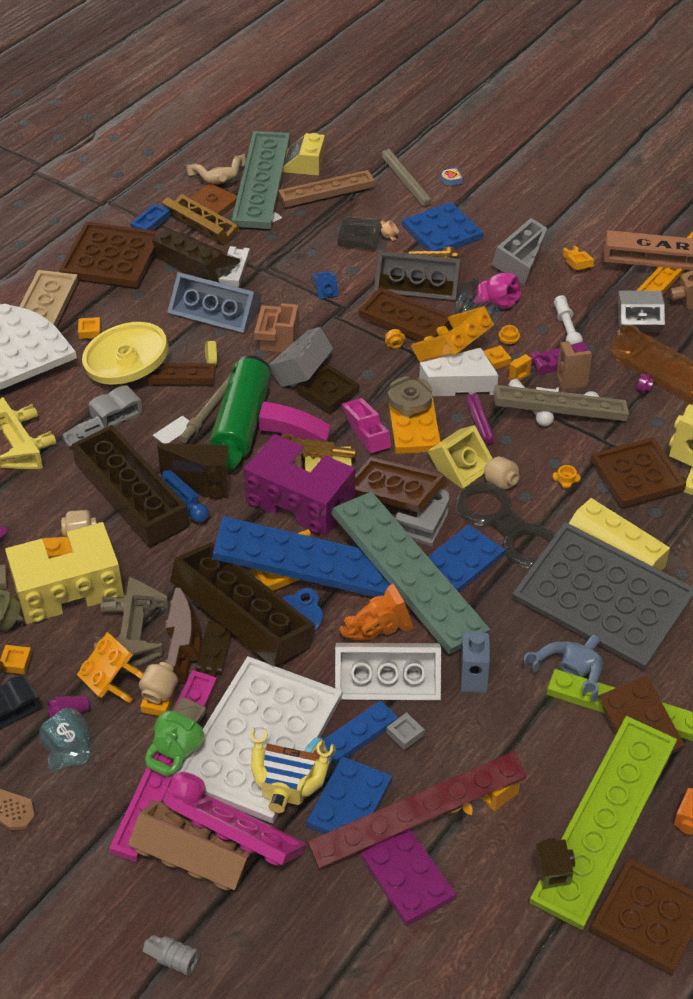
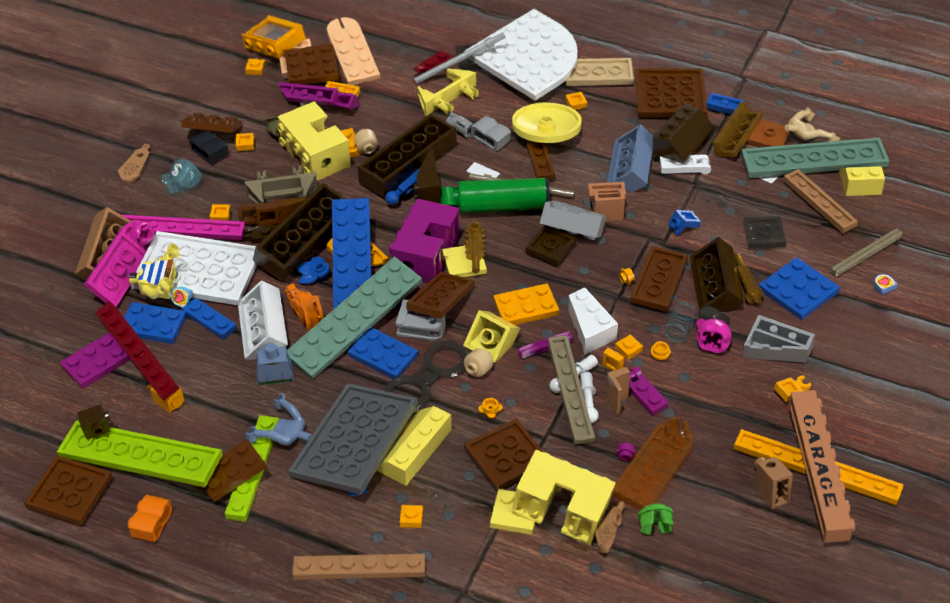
camera: 80 degrees right, 0 degrees up
(58, 703) = (209, 173): magenta cone -> none
(104, 665) = (235, 184): light orange plate -> none
(158, 682) = (223, 203): tan head -> none
(172, 954) = (33, 259): light grey hinge -> none
(174, 738) = (179, 221): bright green piece -> none
(190, 709) = (204, 225): dark tan tile -> none
(211, 352) = (568, 171): light yellow tile -> none
(292, 421) = (500, 230): dark pink slope -> none
(367, 425) = (513, 274): dark pink slope -> none
(389, 230) = (779, 245): light nougat plate -> none
(405, 731) = (210, 340): light grey plate -> none
(410, 404) = (546, 298): dark tan plate -> none
(466, 328) = (625, 305): light orange window -> none
(565, 315) = (675, 398): white pin -> none
(641, 310) = (718, 434): light grey slope -> none

